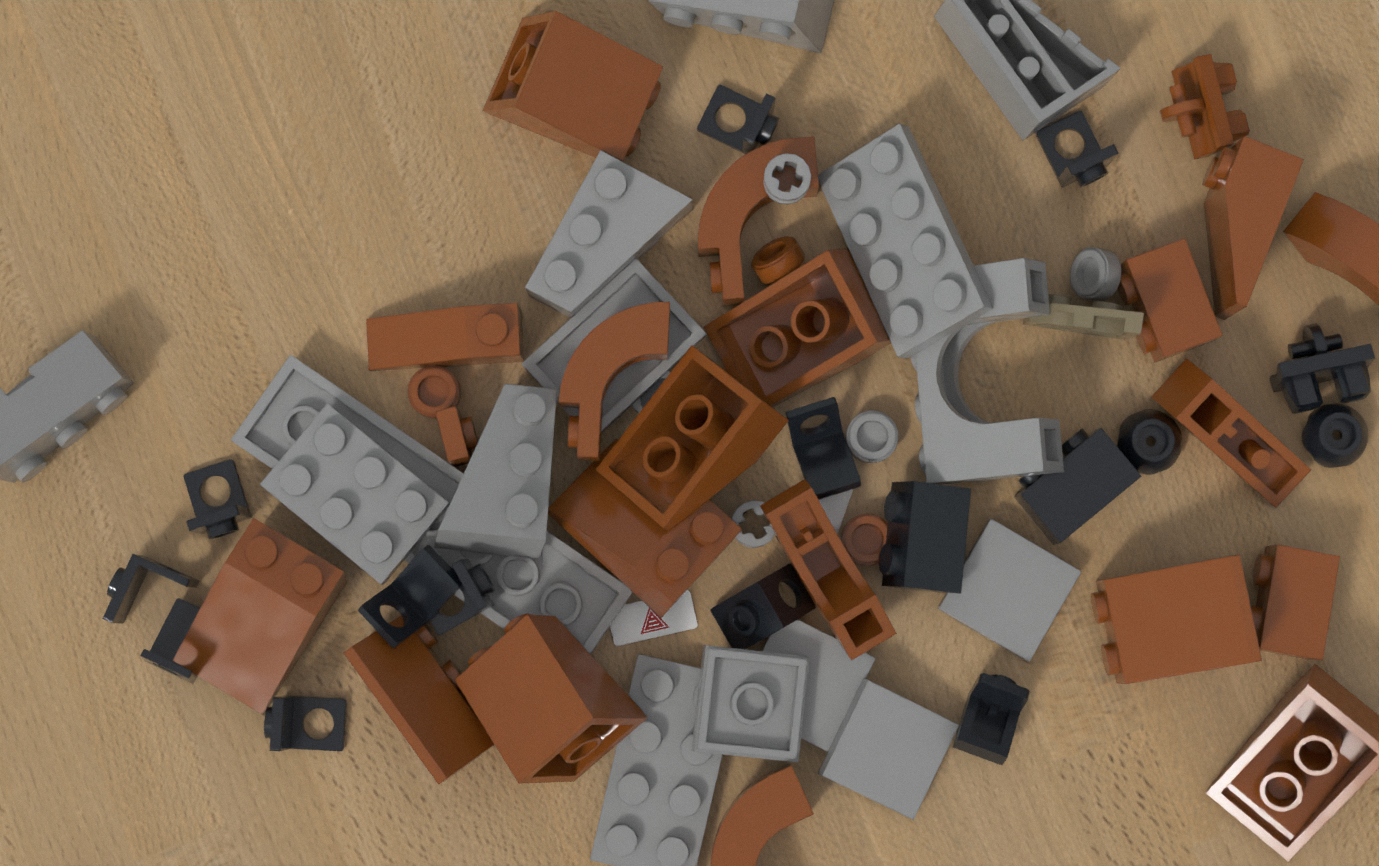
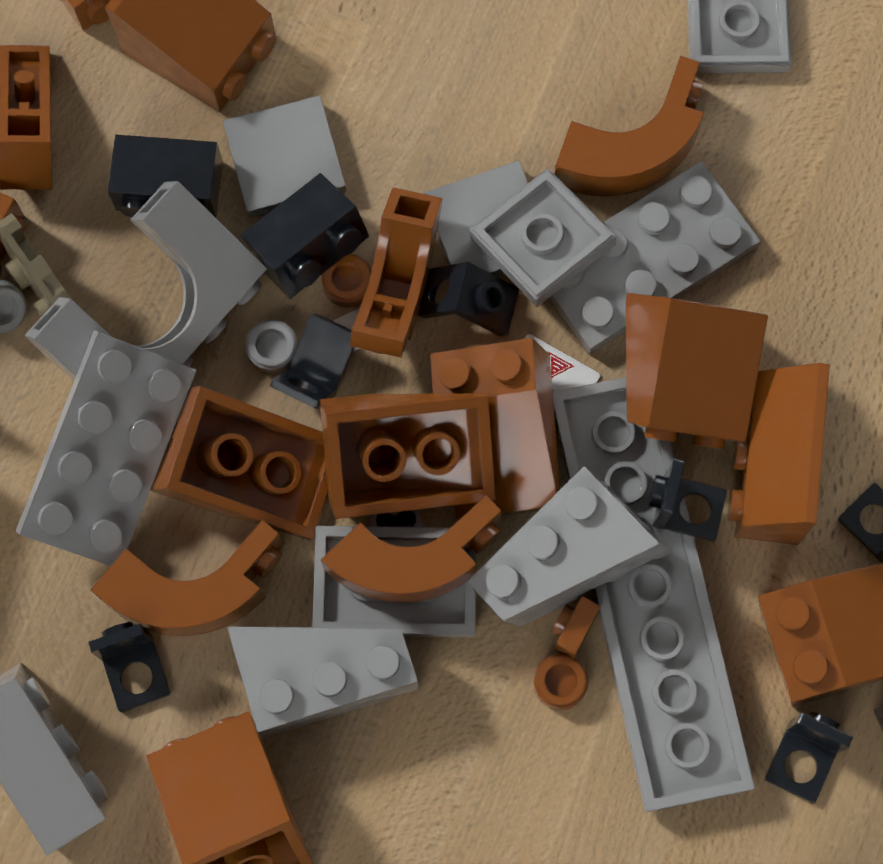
camera: 135 degrees left, 10 degrees down
(355, 494) = (695, 652): light grey plate -> none
(415, 594) = (717, 528): black bracket -> none
(446, 337) = (513, 710): dark orange slope -> none
(749, 539) = (401, 367): light grey bush -> none
(772, 184) = (126, 569): light grey bush -> none
(777, 259) = (209, 531): dark orange tile -> none
(888, 749) = (475, 126): light grey tile -> none
(990, 717) = (384, 81): black bracket -> none
(1133, 437) = (83, 179): black plate -> none

